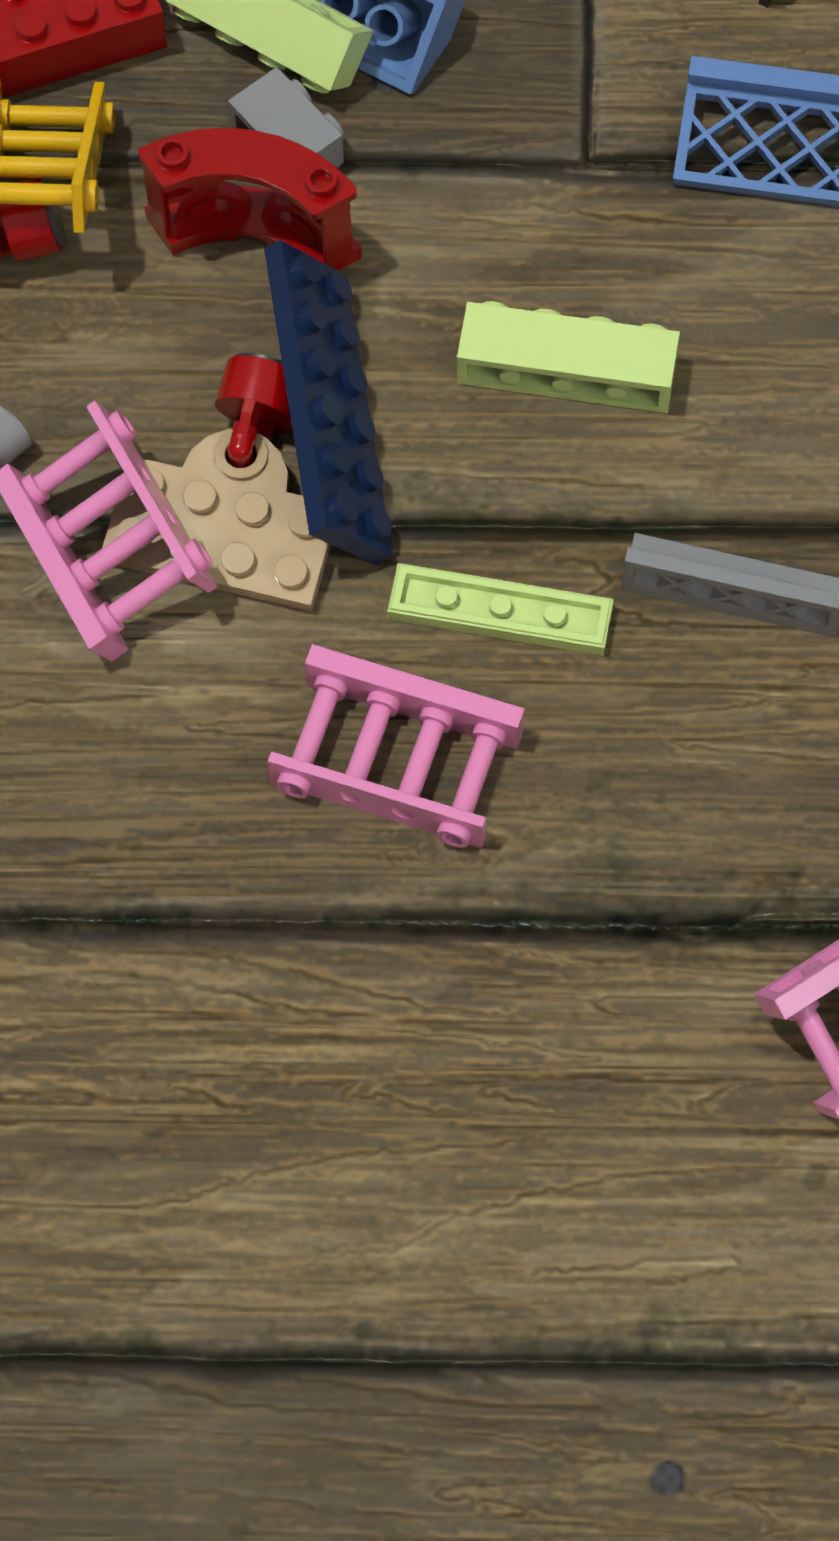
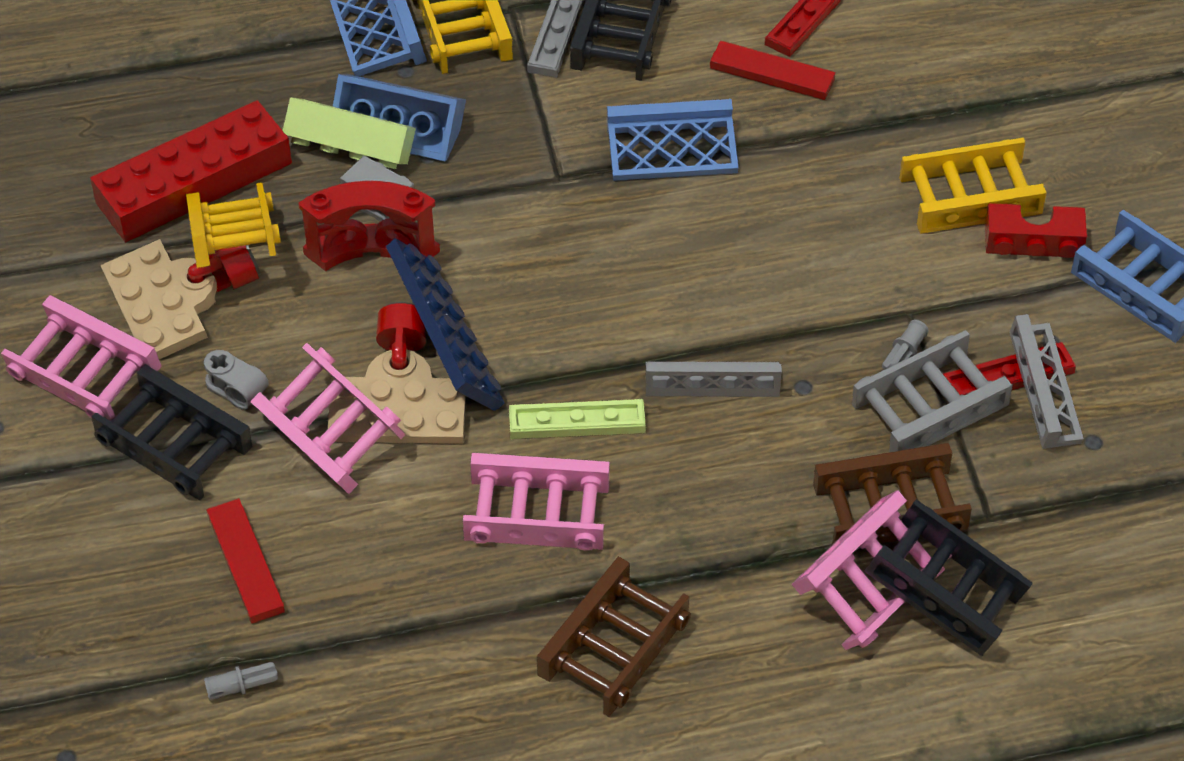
camera: 15 degrees left, 15 degrees down
(443, 956) = (598, 607): none -> reddish brown fence
(567, 356) = (579, 277): yellowish green brick -> none

